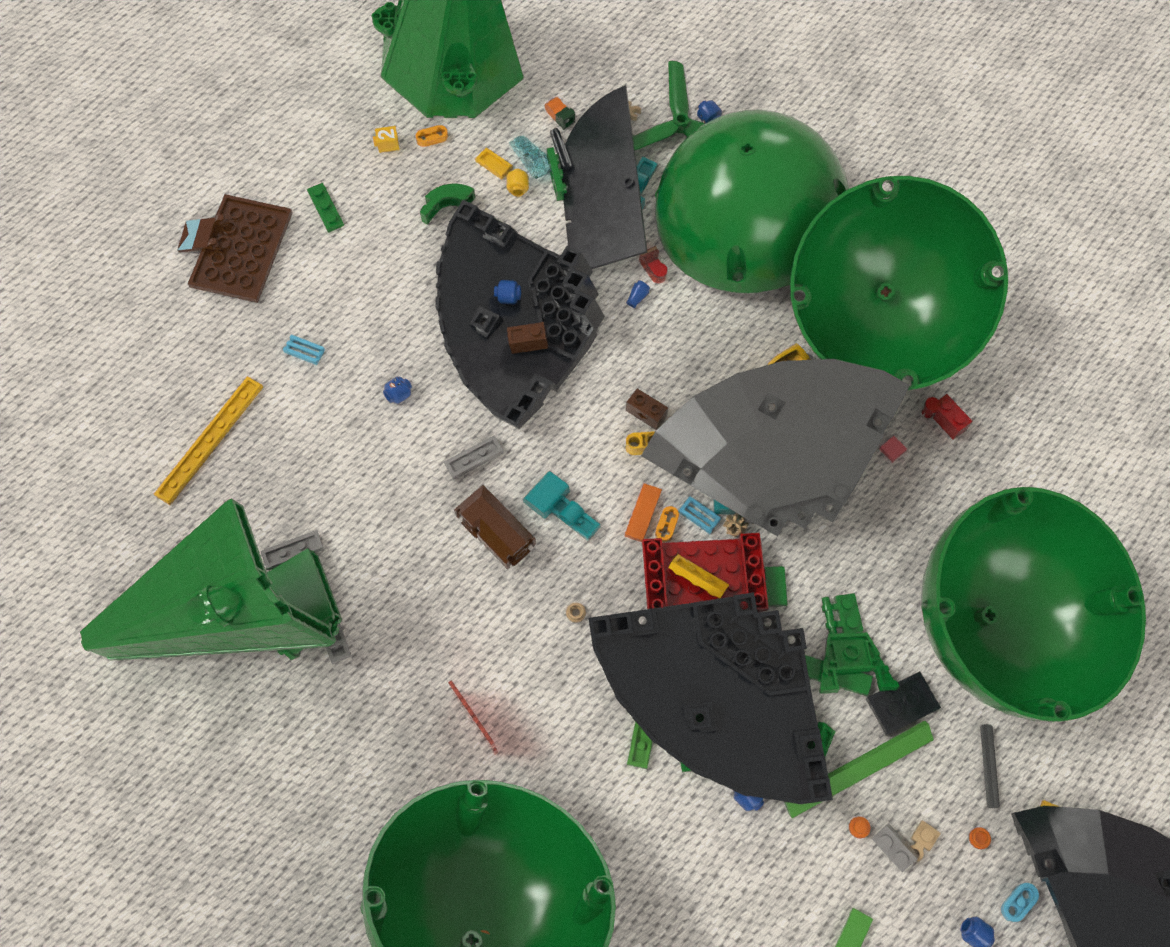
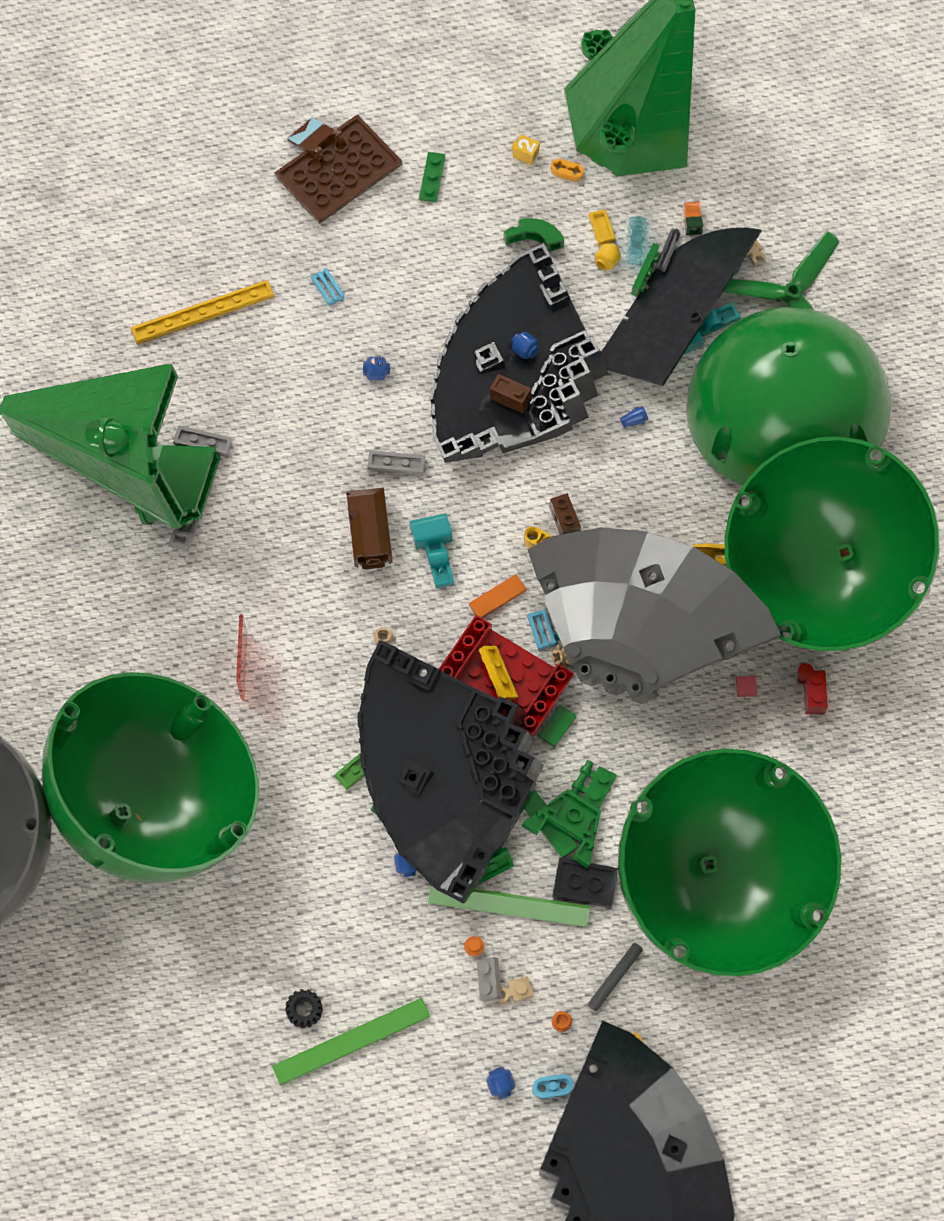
camera: 35 degrees right, 0 degrees up
(655, 269) = (666, 398): leg -> none
(662, 523) = (506, 615): light orange beam -> none
(708, 111) = (824, 300): blue head -> none

